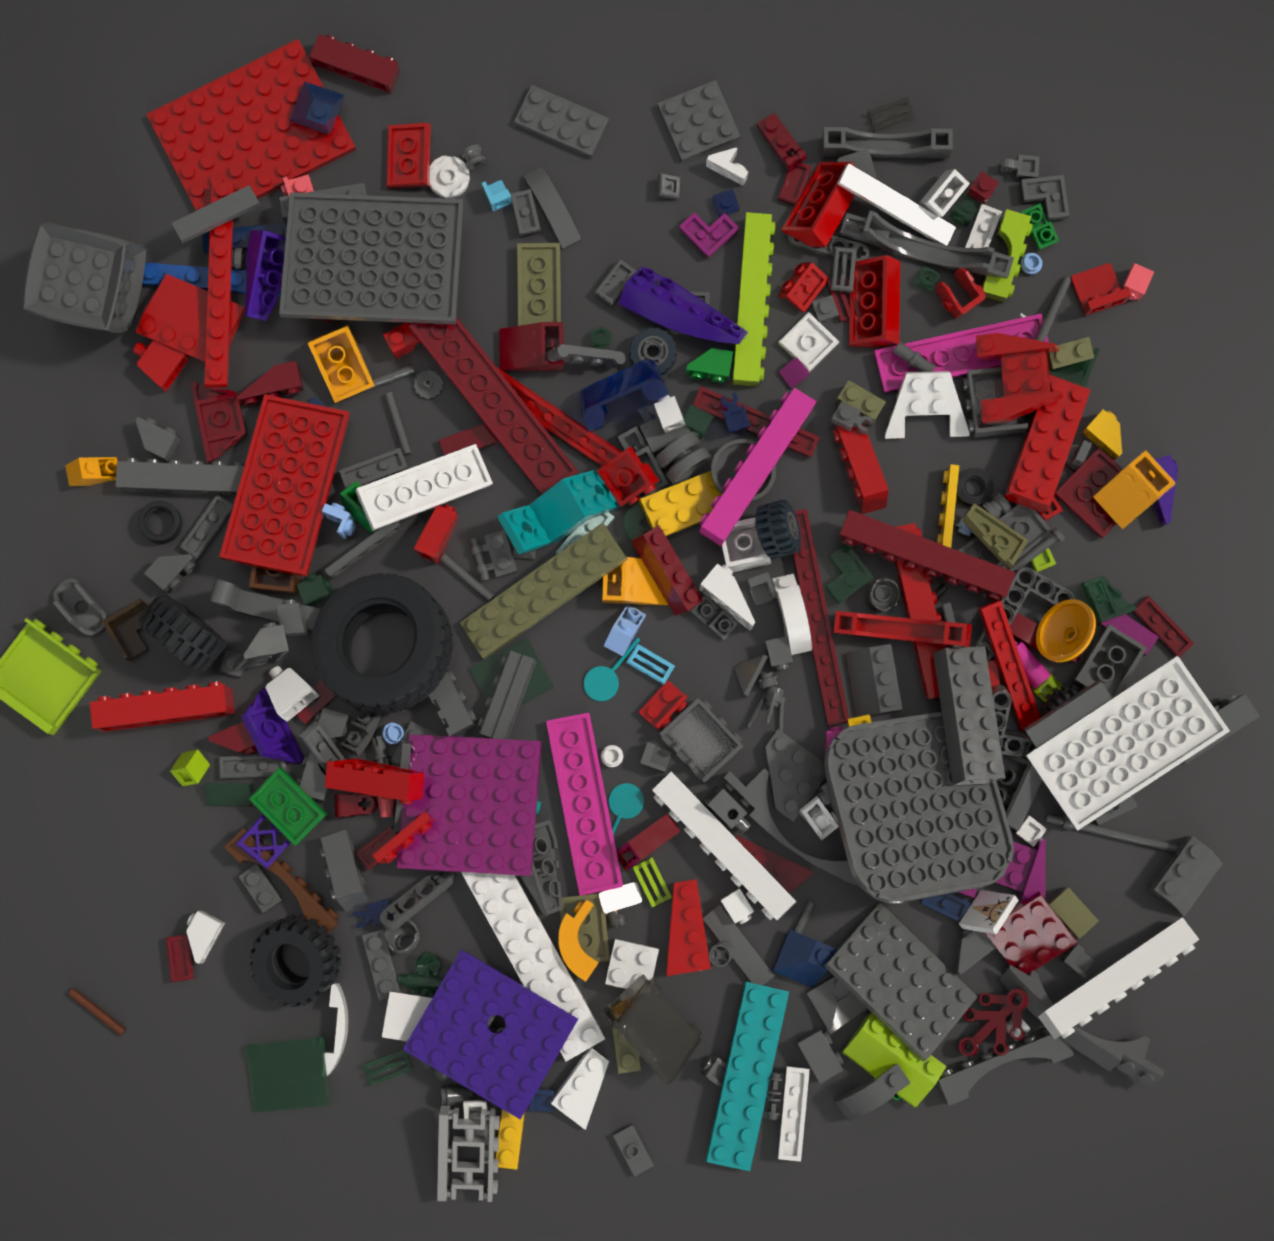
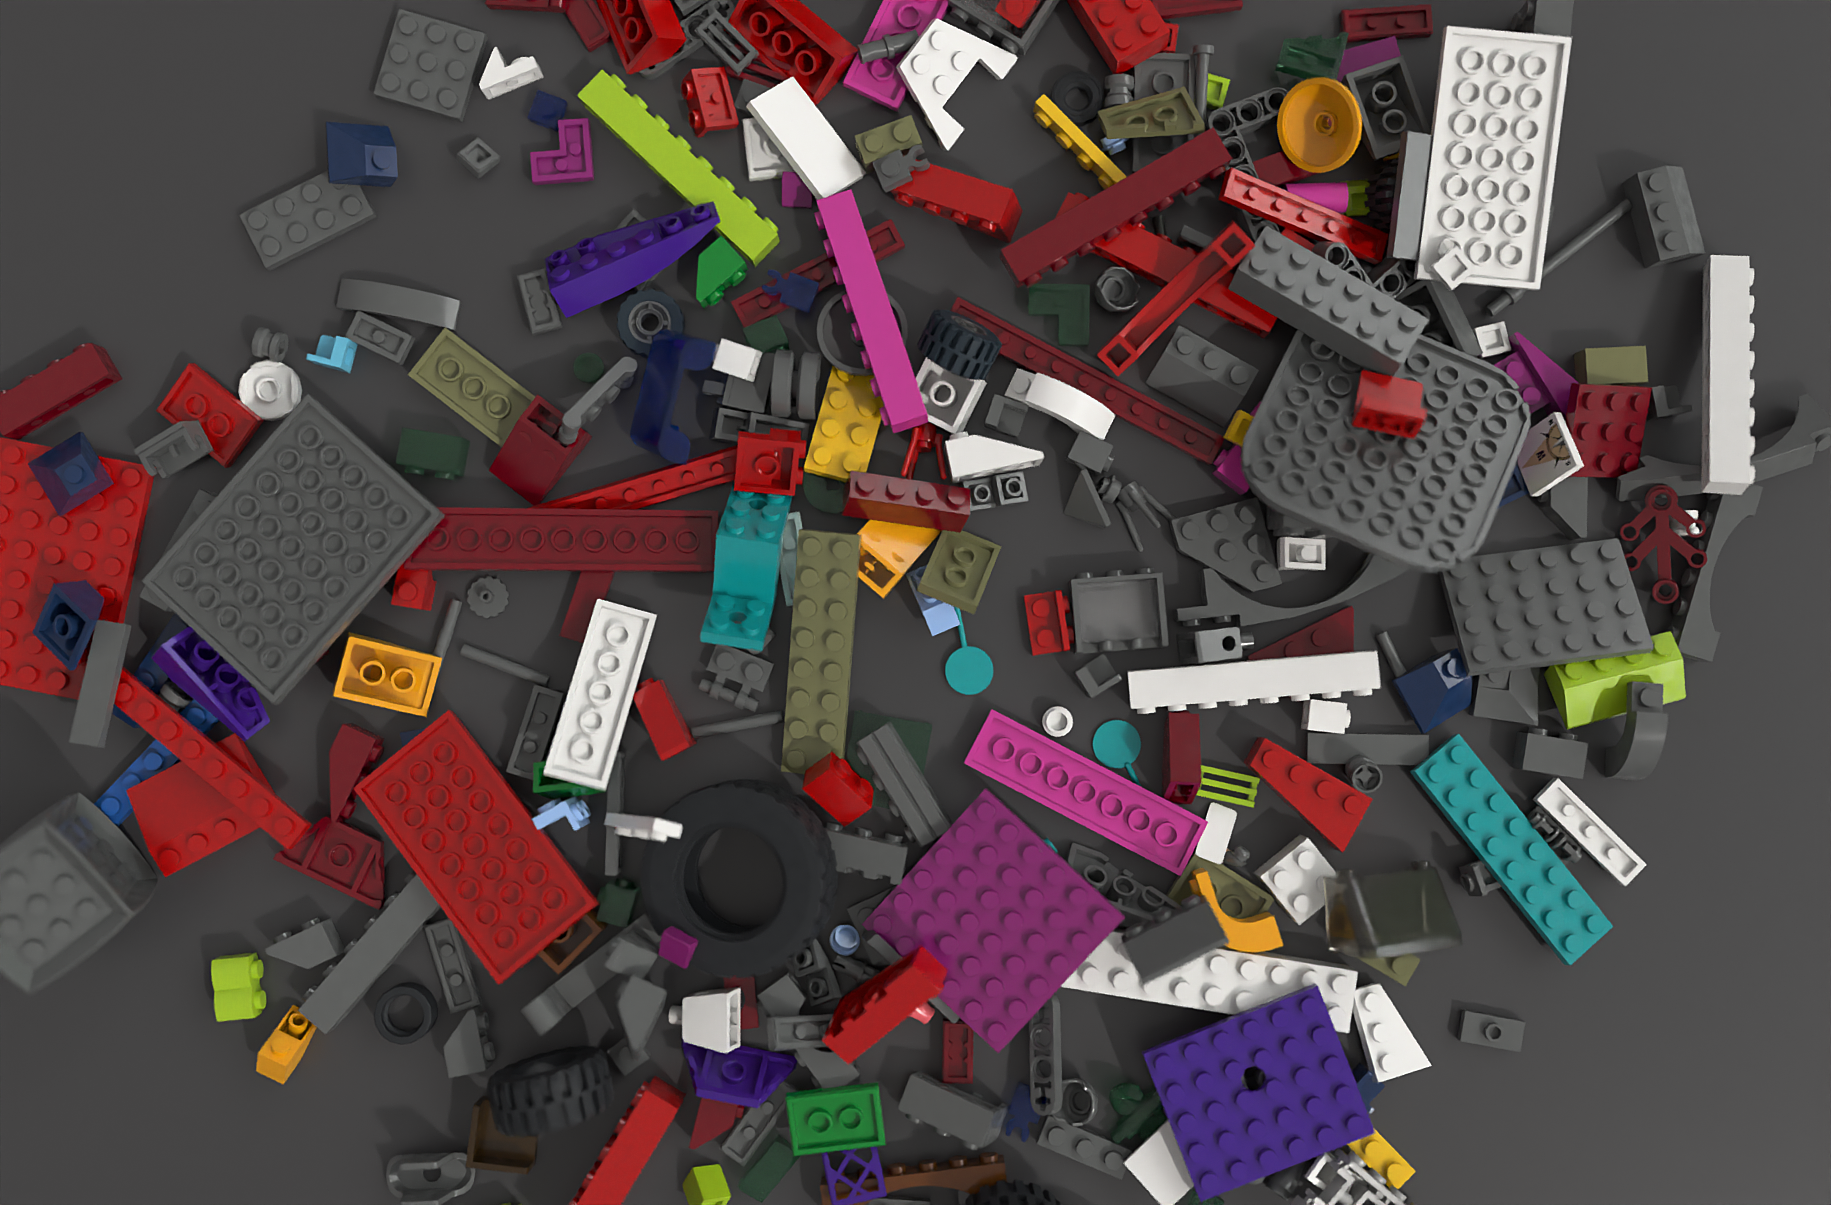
camera: 55 degrees left, 5 degrees up
(103, 419) = (237, 986): none -> lime brick
(160, 362) = (224, 875): red torso -> none
(236, 171) = (69, 620): none -> dark blue slope
(297, 185) = (143, 563): coral bracket -> none
(317, 638) = (677, 946): none -> magenta slope
(351, 805) = (889, 1048): dark red piece -> none
(369, 566) = (642, 827): none -> white plate
(375, 152) = (174, 448): none -> dark grey hinge
(404, 838) = (975, 1022): red plate -> none
(475, 660) = (838, 789): none -> red brick
(484, 291) = (433, 453): none -> clear green brick
(540, 911) = (1174, 938): none -> dark grey slope
(618, 123) = (360, 154): none -> dark blue slope
(653, 630) = (959, 569): none -> olive plate
(666, 673) = (1015, 591): medium azure tile -> none
(710, 552) = (922, 440): none -> red plant
(825, 355) = (806, 139): none -> white tile
(937, 792) = (1389, 405): none -> red bracket
(1047, 769) = (1452, 268): none -> white plate

